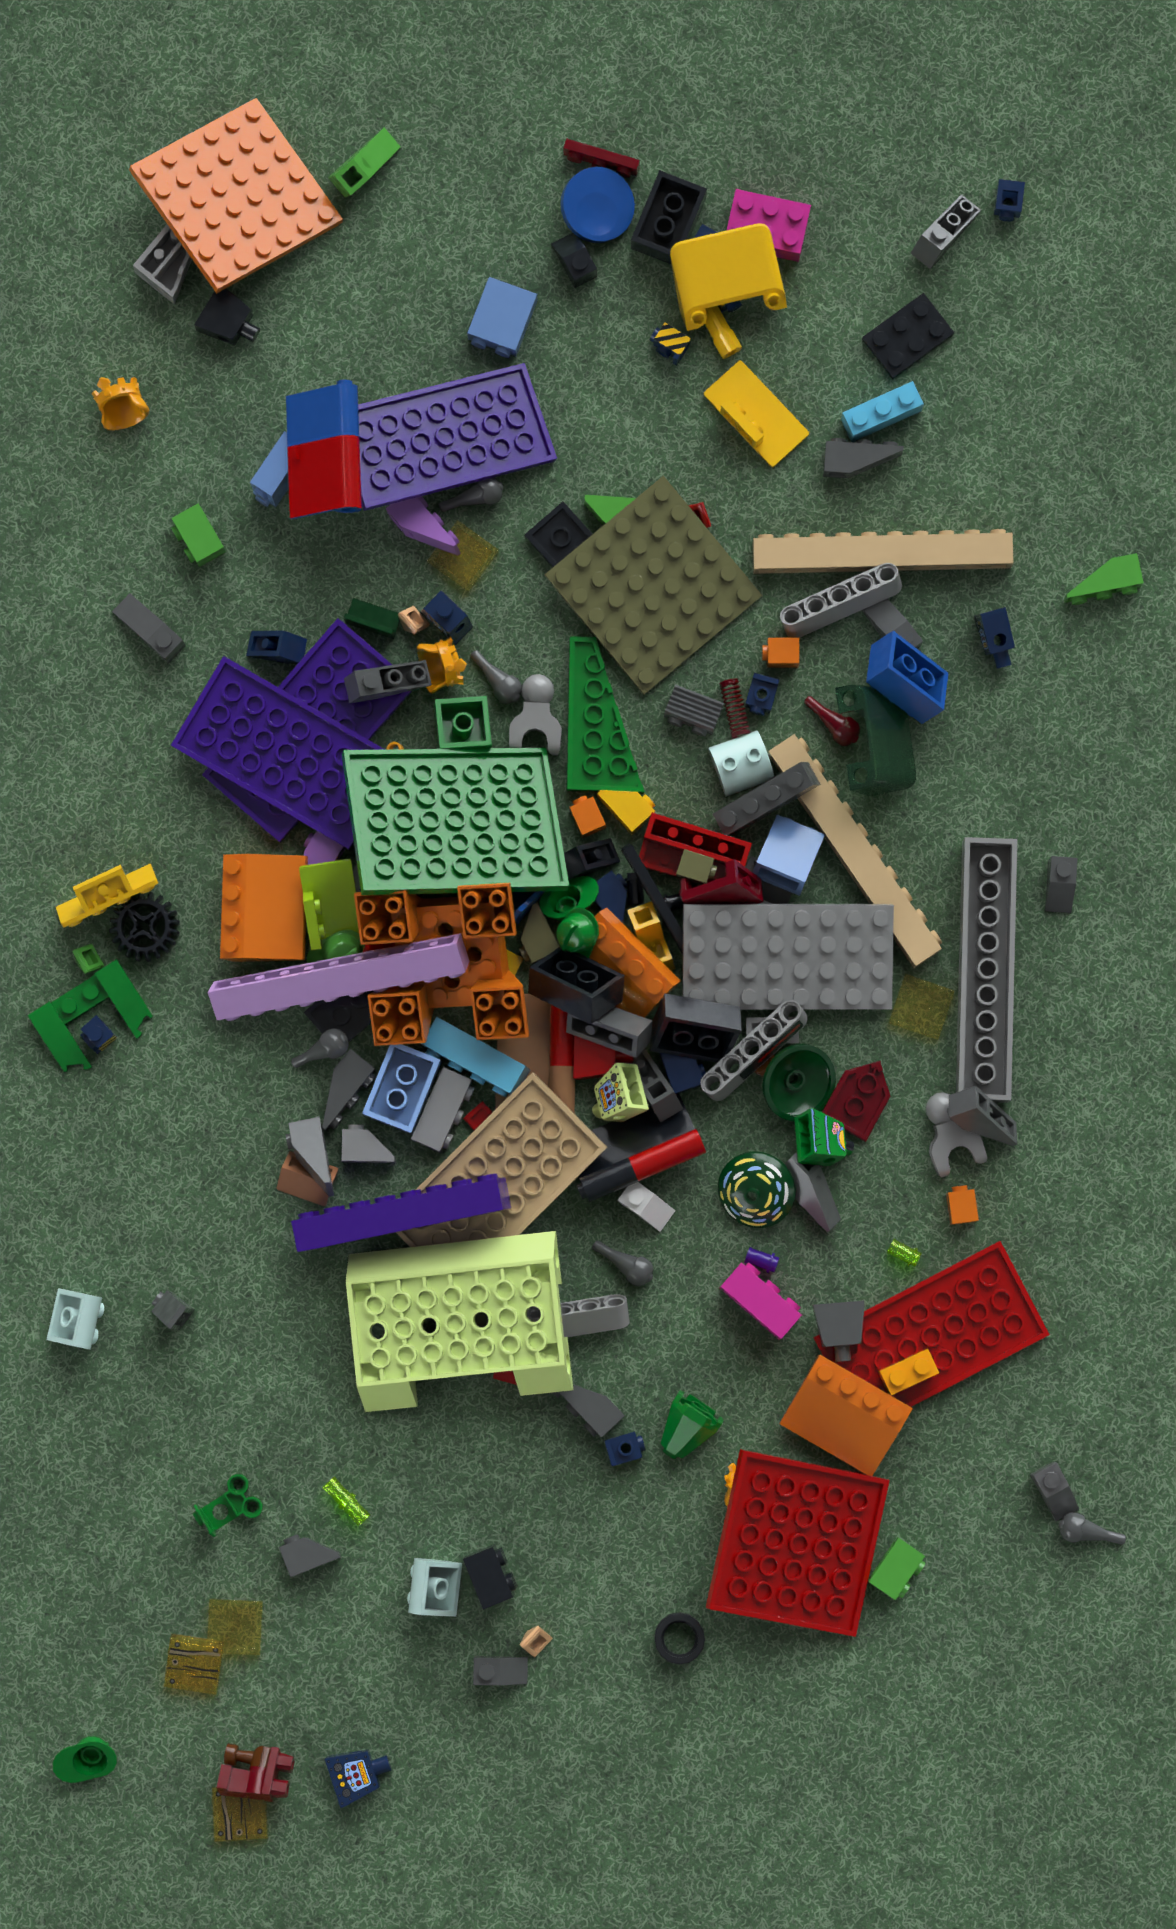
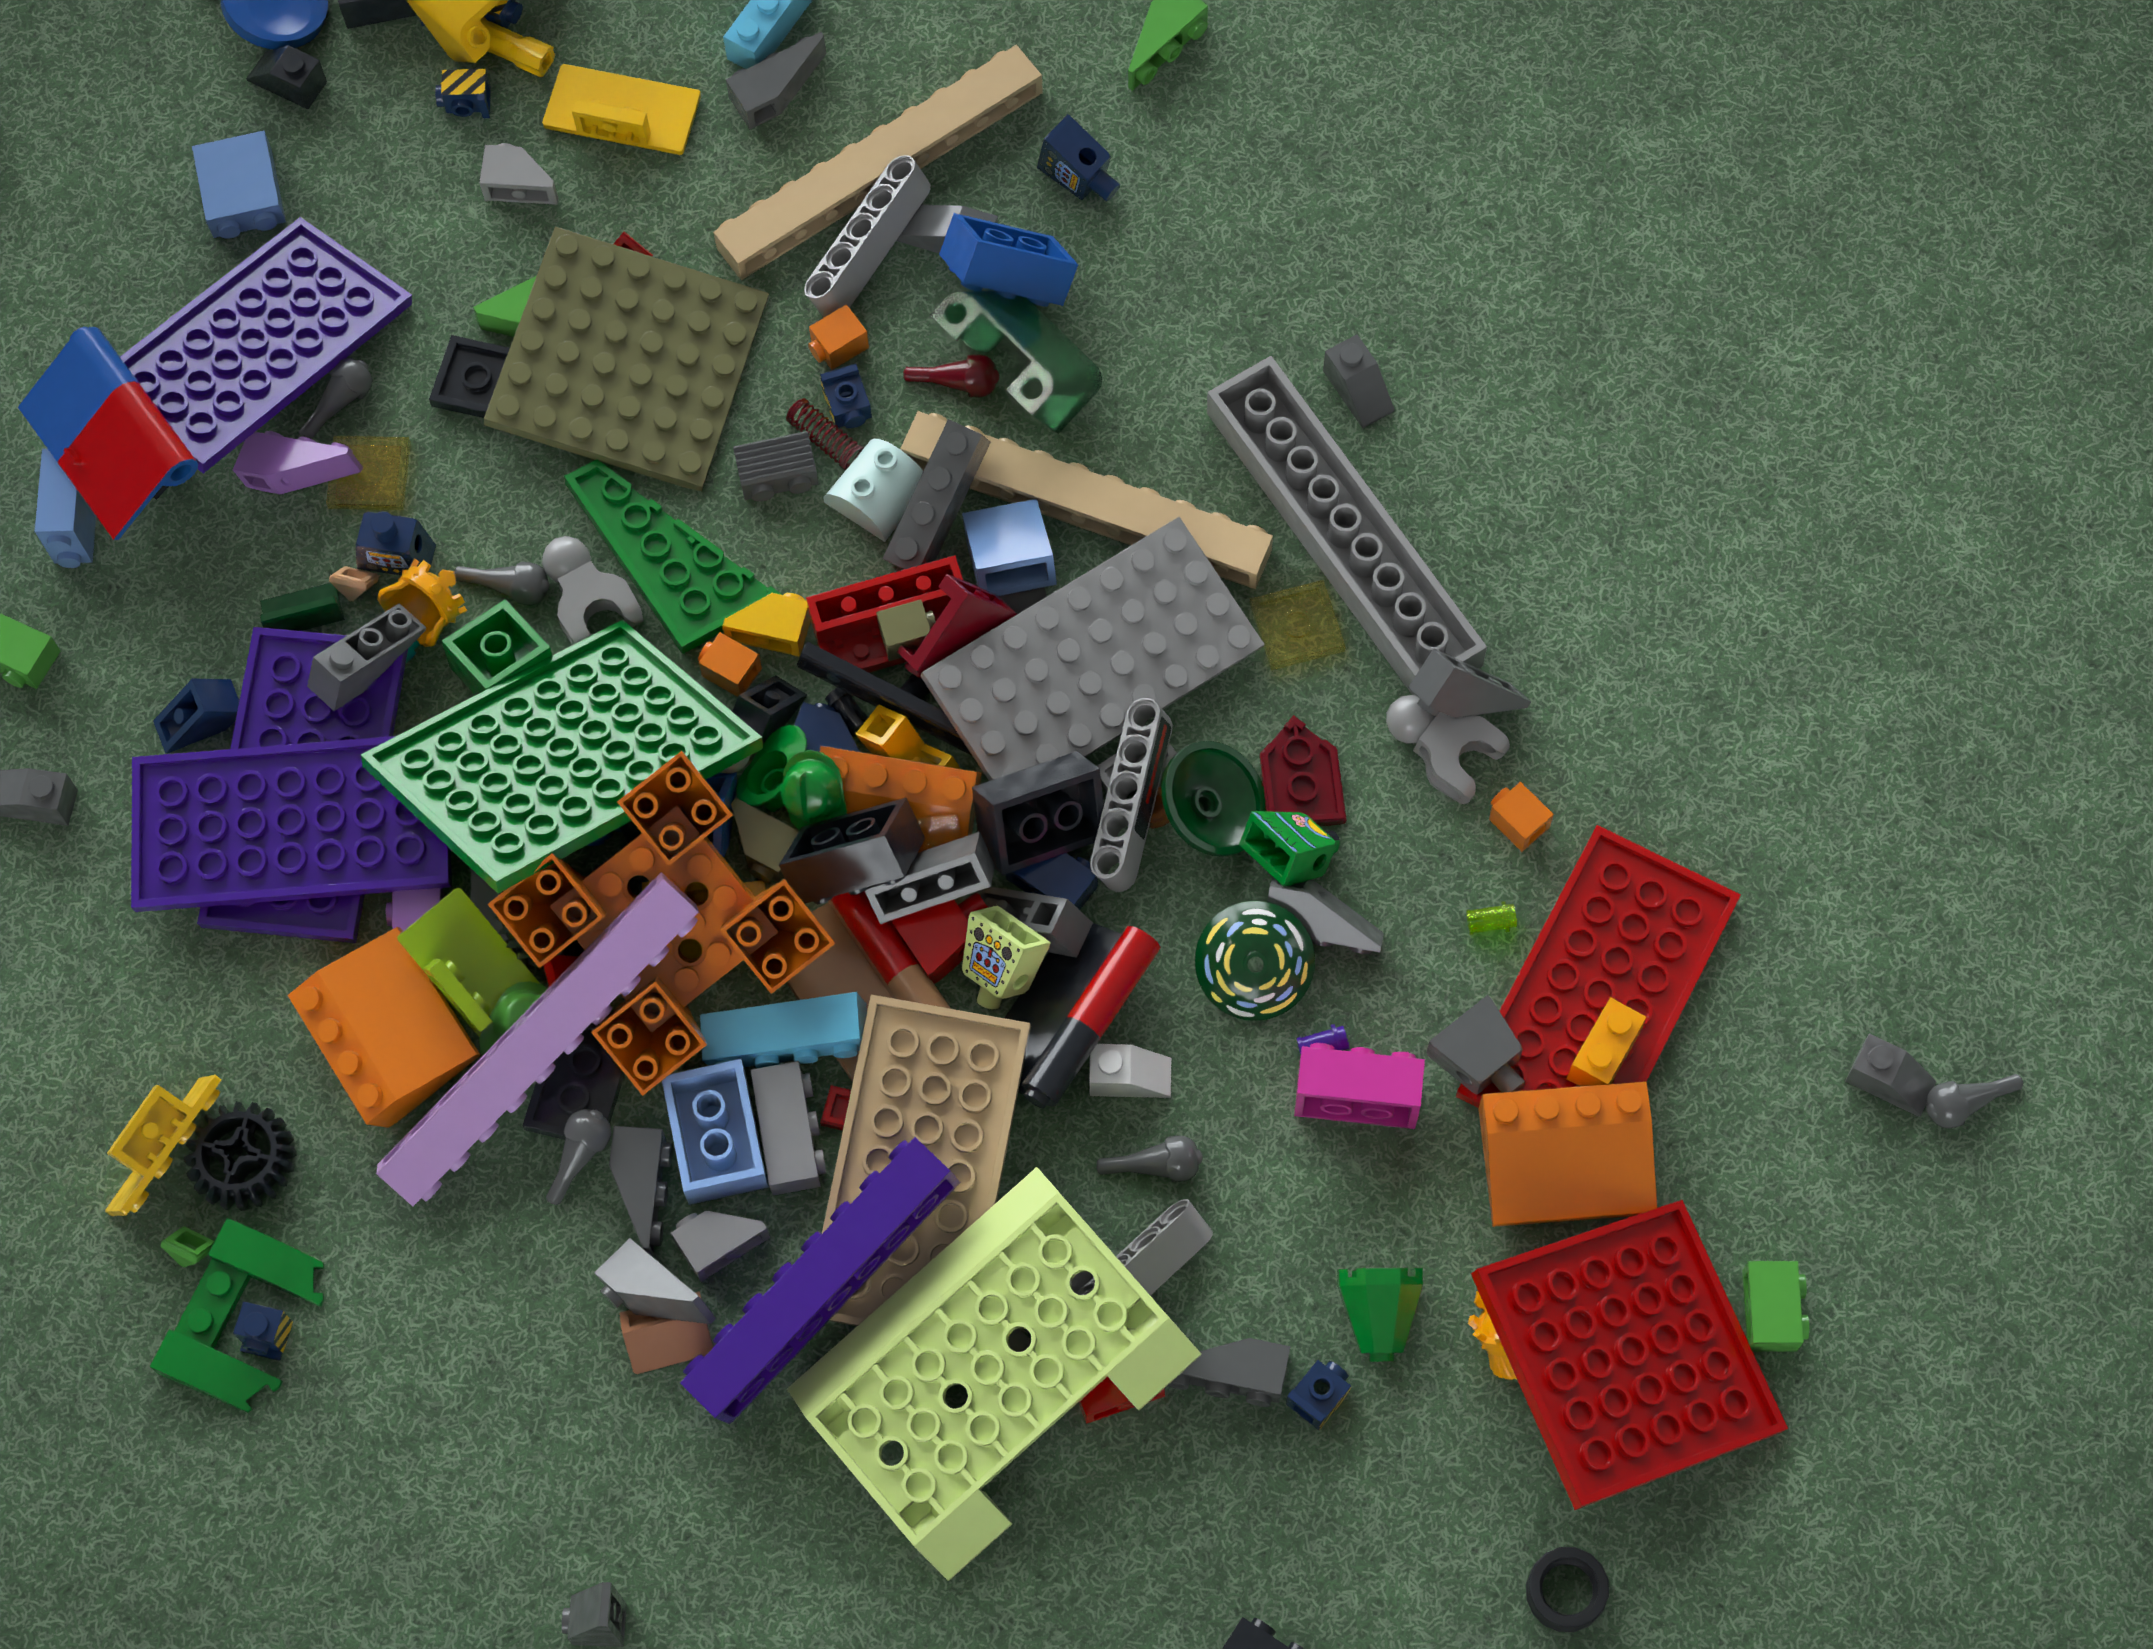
camera: 35 degrees left, 15 degrees down
(663, 418) = (514, 176): none -> light grey slope

